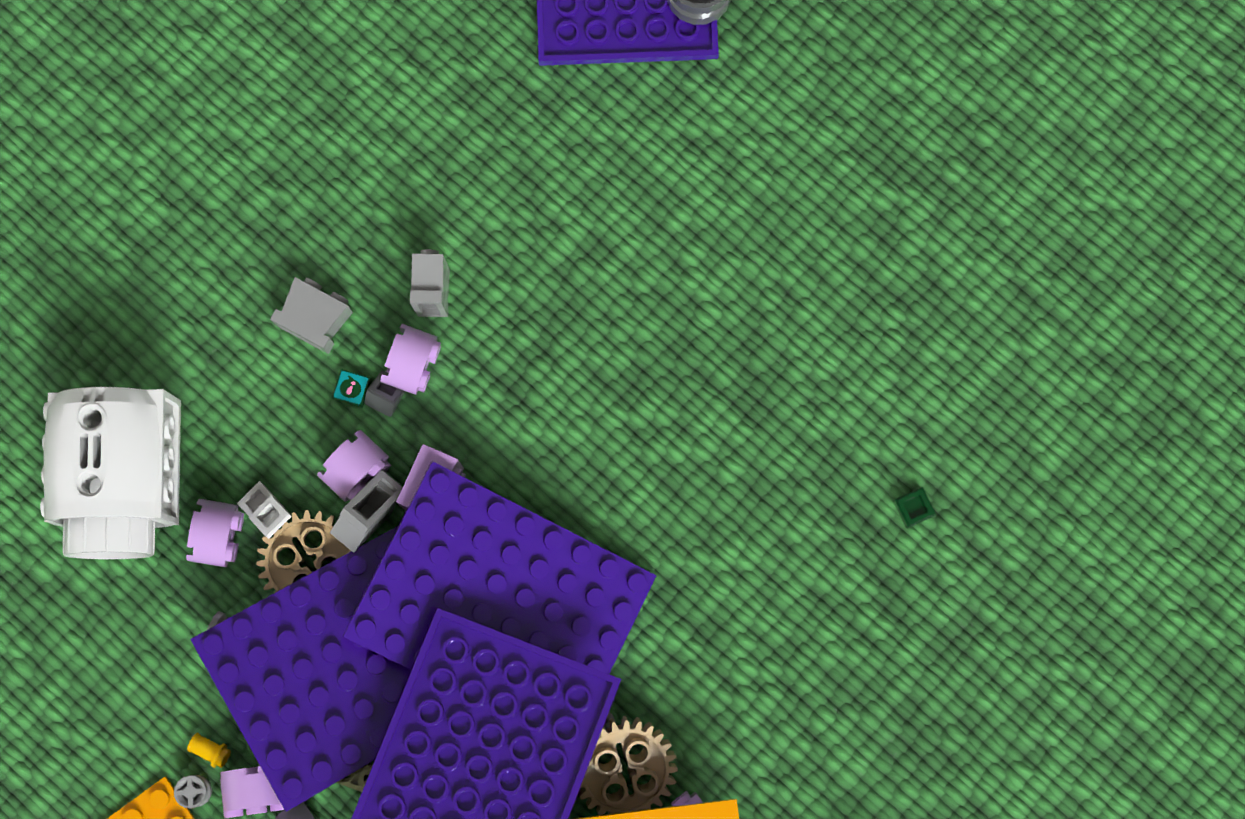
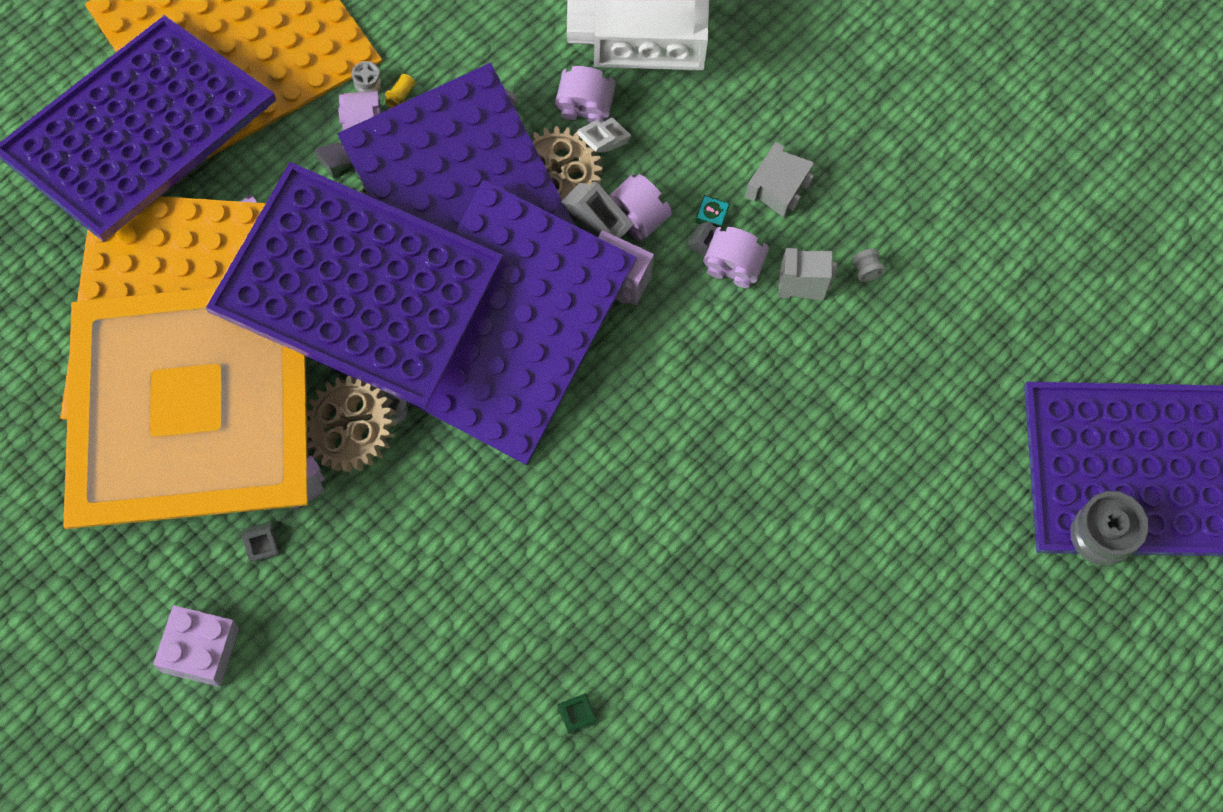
camera: 85 degrees right, 10 degrees down
(411, 220) = (868, 265): none -> light grey wheel

